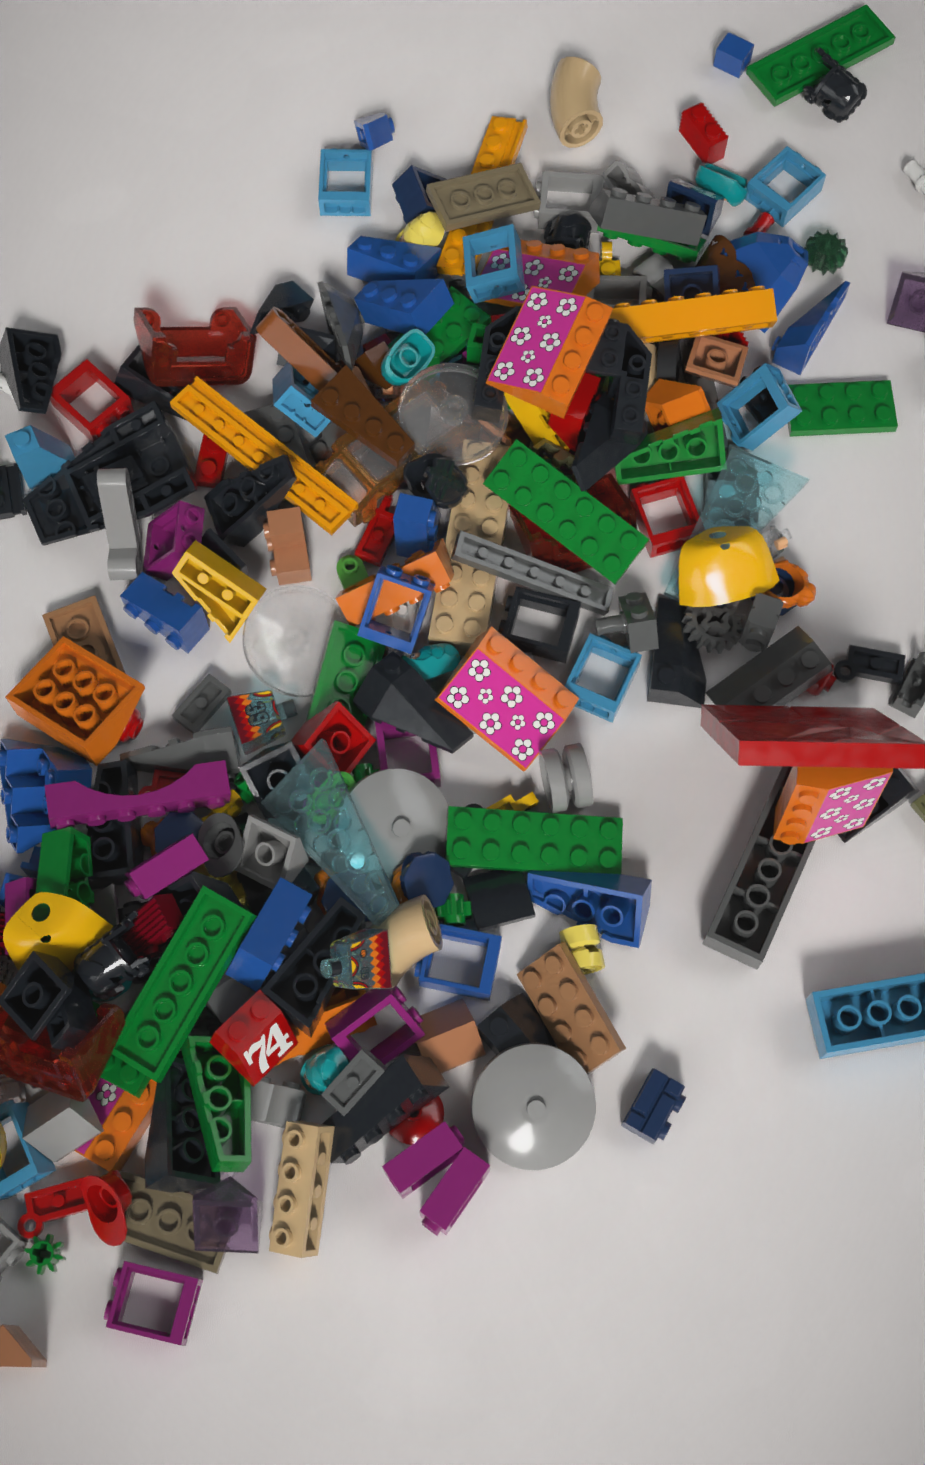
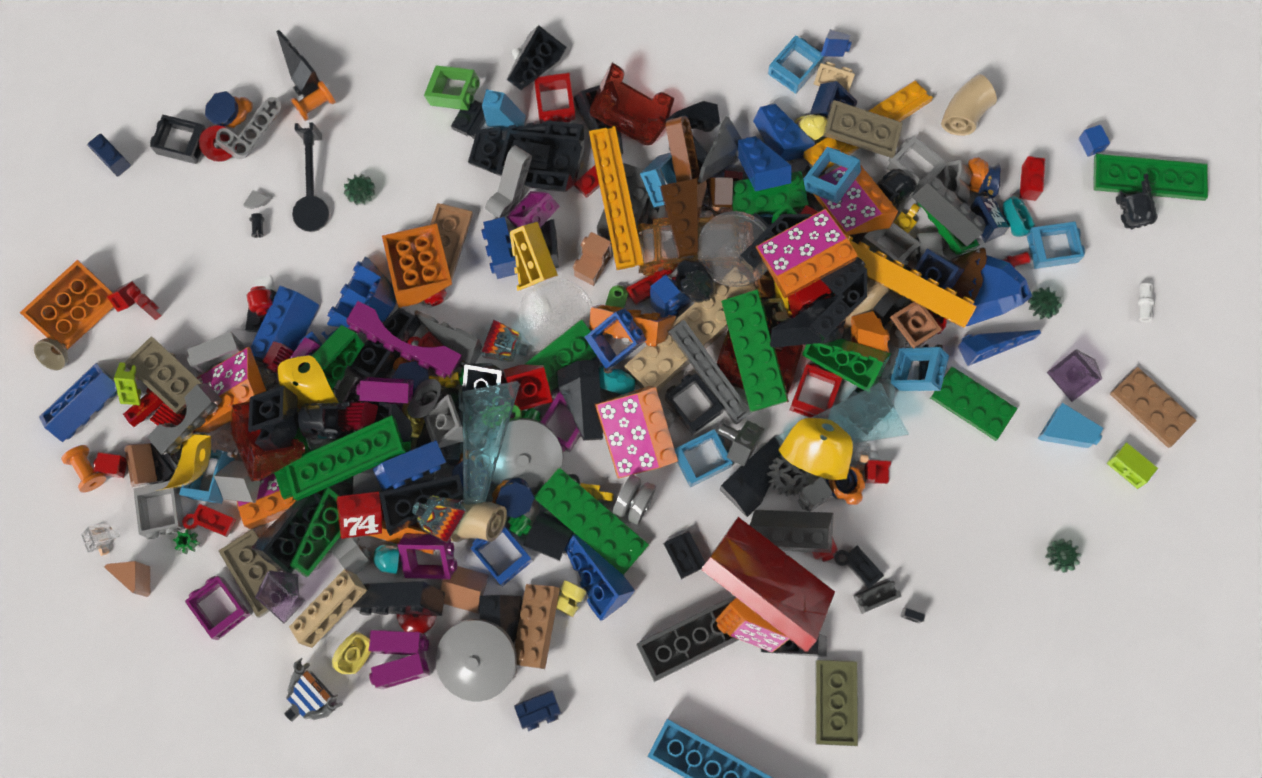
camera: 40 degrees right, 5 degrees up
(106, 1202) = (232, 540): red piece -> none
(201, 704) = (480, 313): dark grey plate -> none
(242, 503) = (587, 216): black wedge -> none
(354, 1081) = (391, 575): dark grey plate -> none
(363, 1315) = (308, 695): none -> torso
(375, 1220) = (351, 654): none -> light yellow piece
(391, 167) = (828, 73): none -> tan bracket
(407, 357) = (736, 197): teal piece -> none
(655, 163) = (984, 177): none -> piece
(671, 799) = (684, 554): none -> black plate
(802, 550) = (877, 471): none -> red panel

